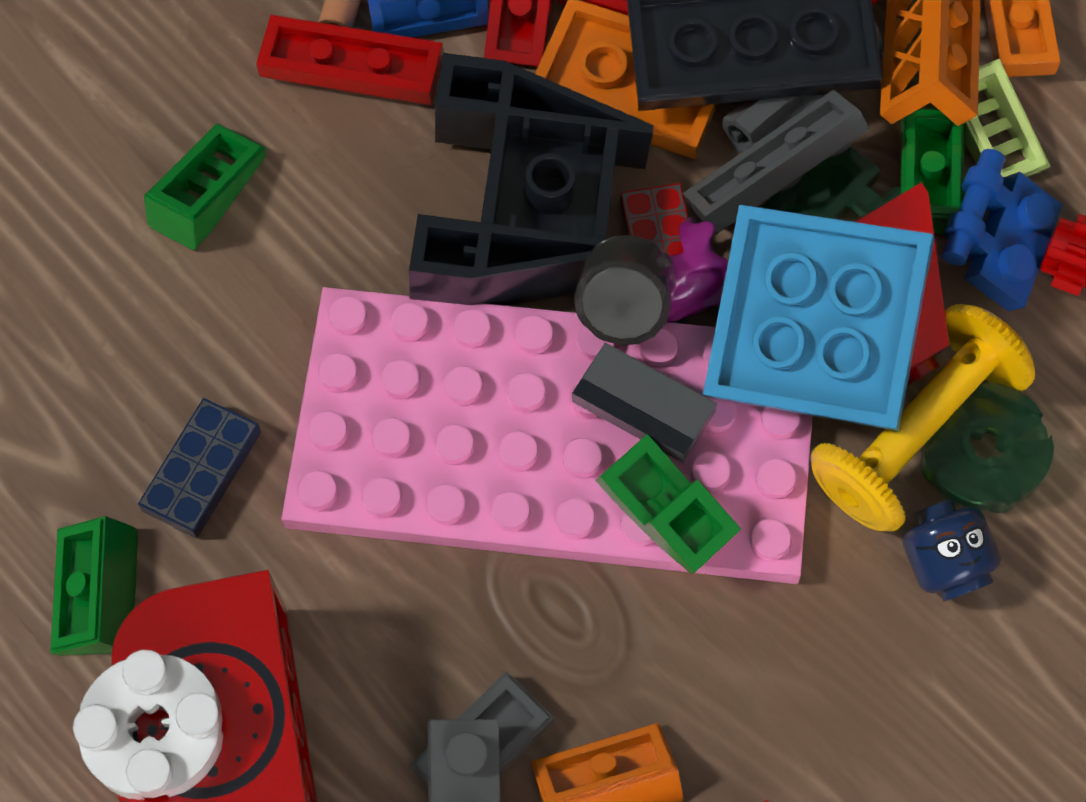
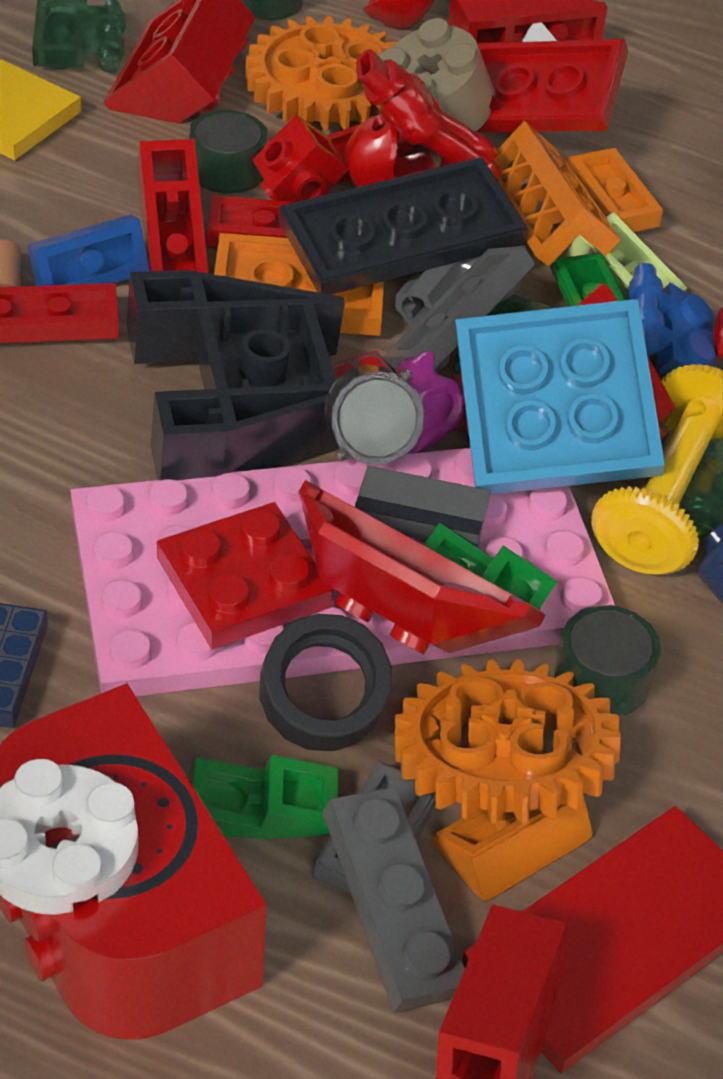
camera: 25 degrees left, 20 degrees down
(387, 680) = (266, 803): none -> green slope
(434, 602) = (347, 637): none -> black tyre
(444, 439) = (243, 574): none -> red plate
(579, 495) = (406, 581): none -> red wedge
(628, 690) = (506, 741): none -> orange gear
(766, 619) = (613, 652): none -> piece

